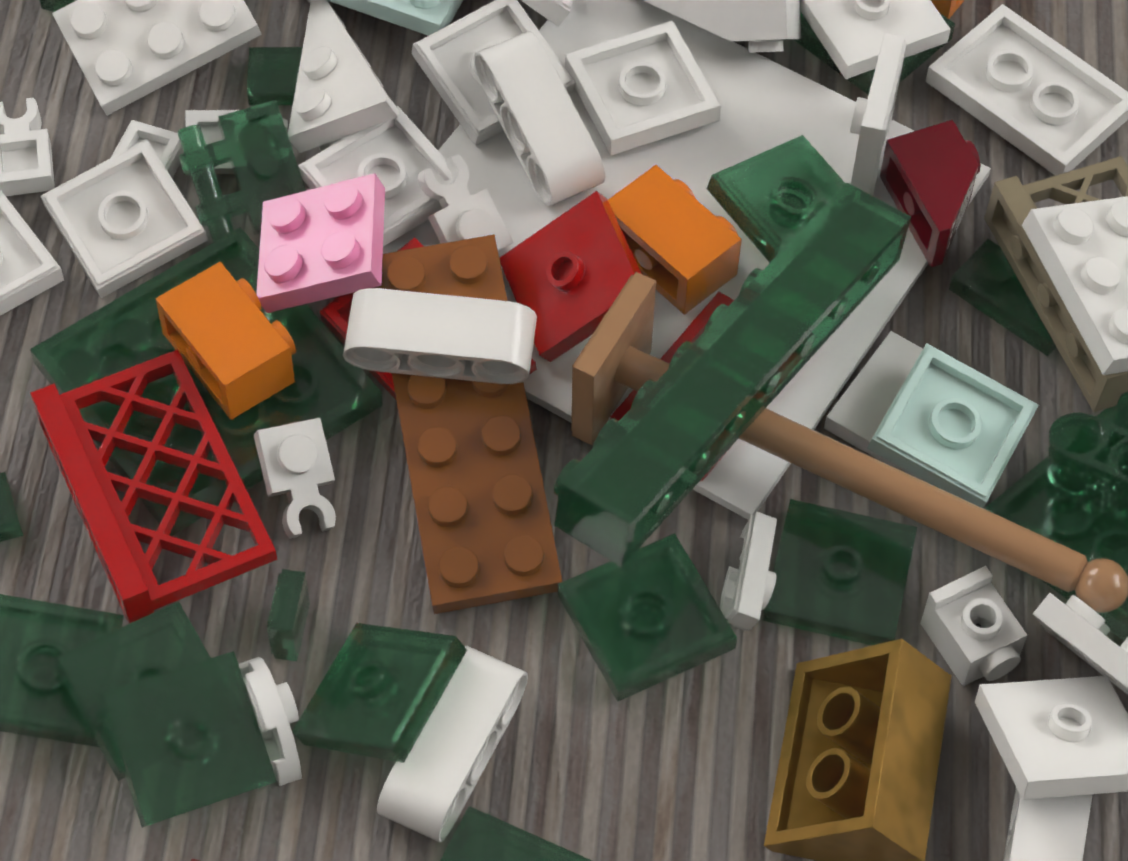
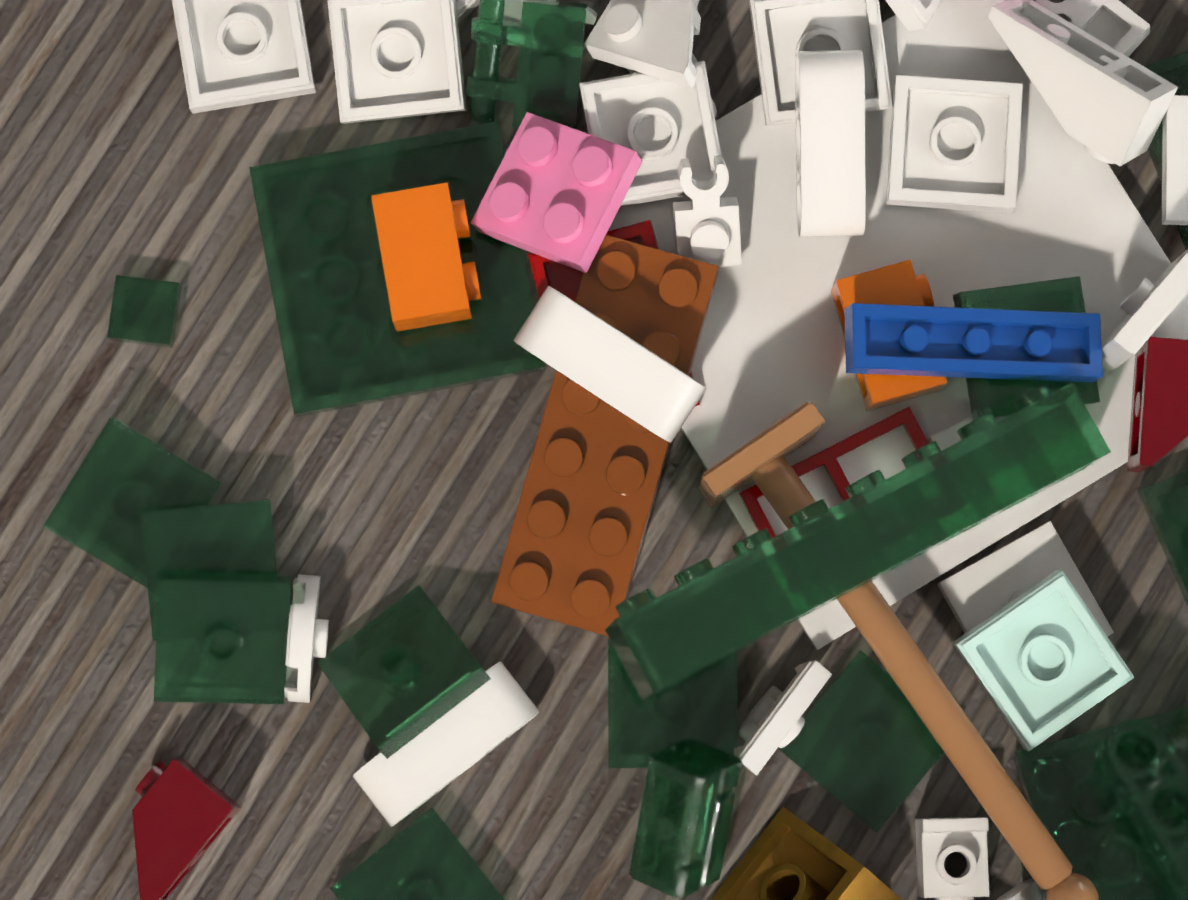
camera: 25 degrees right, 25 degrees up
(107, 517) = (241, 366): red fence -> none
(288, 614) = (361, 553): clear green tile -> none
(295, 464) = (432, 409): white plate -> none
(570, 274) = (774, 340): red plate -> none
(714, 687) = (684, 817): none -> clear green brick
(740, 194) = (972, 343): none -> blue plate

